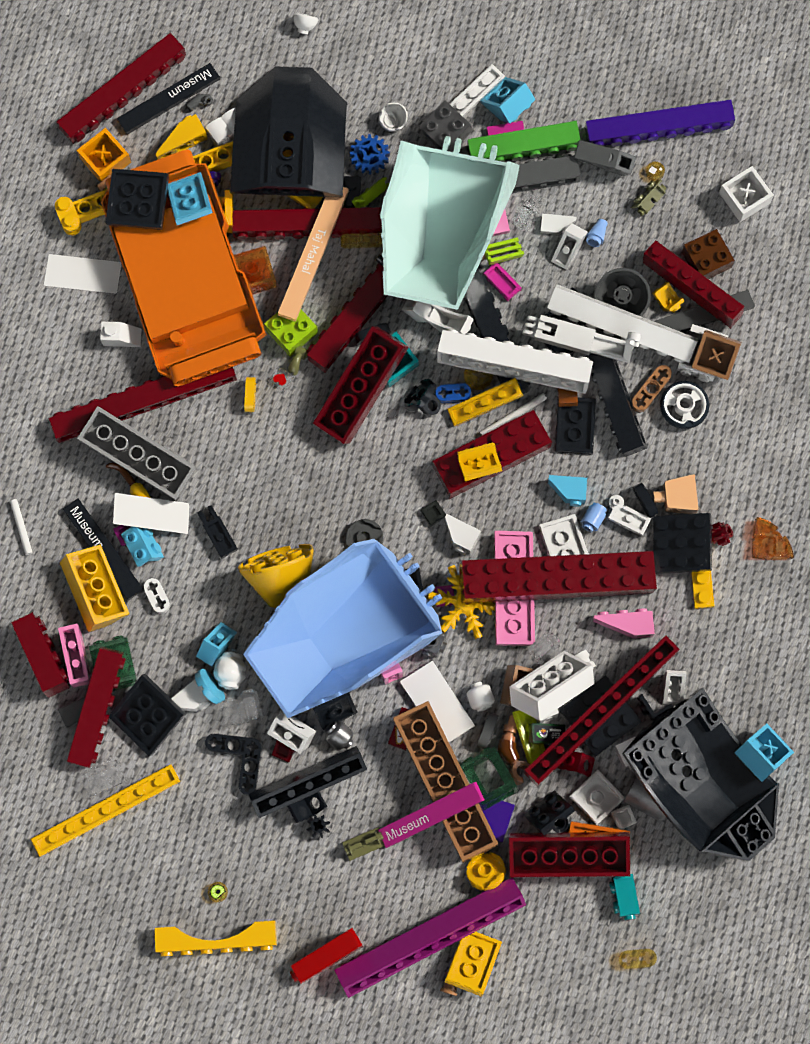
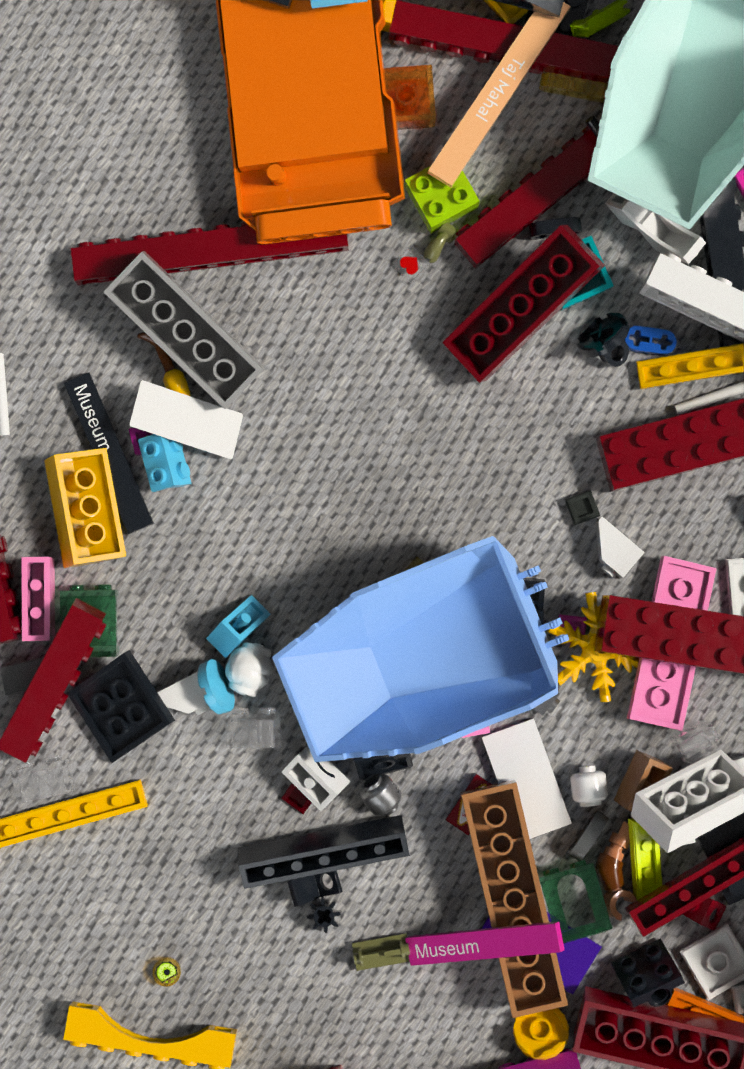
camera: 10 degrees right, 10 degrees up
(82, 273) = (162, 44): white sticker -> none
(120, 335) = (197, 148): white slope -> none
(152, 598) = (162, 538): white beam -> none
(218, 534) = (274, 469): black hinge -> none
(242, 750) = (242, 783): black beam -> none
(250, 394) = (362, 277): yellow beam -> none
(278, 571) = (348, 548): yellow cone -> none
(356, 529) = (477, 519): dark grey tile -> none
(475, 384) = (683, 334): clear yellow gear -> none
(479, 461) = (666, 456): yellow bracket -> none
(545, 733) = (670, 863): tile -> none

